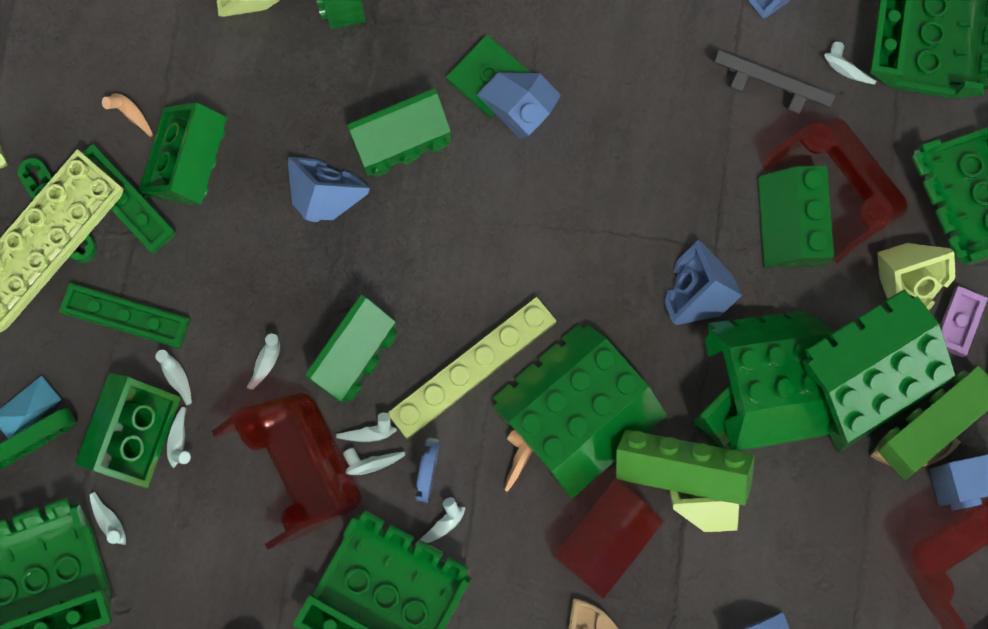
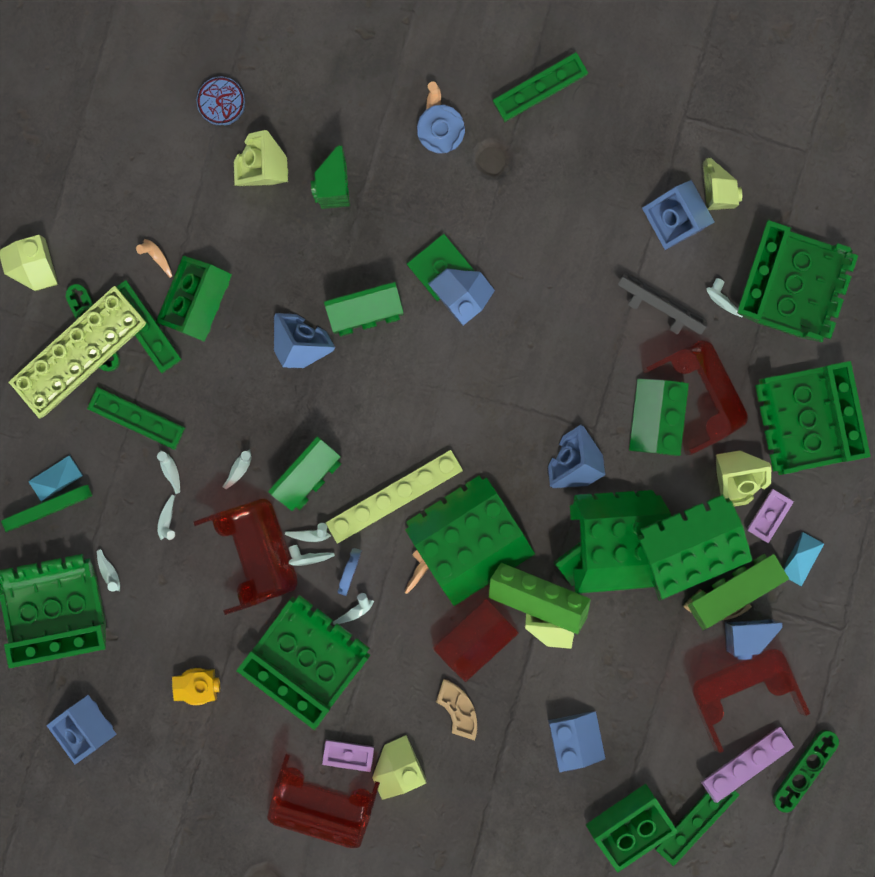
camera: 10 degrees right, 10 degrees up
(128, 430) = (130, 507): green slope -> none

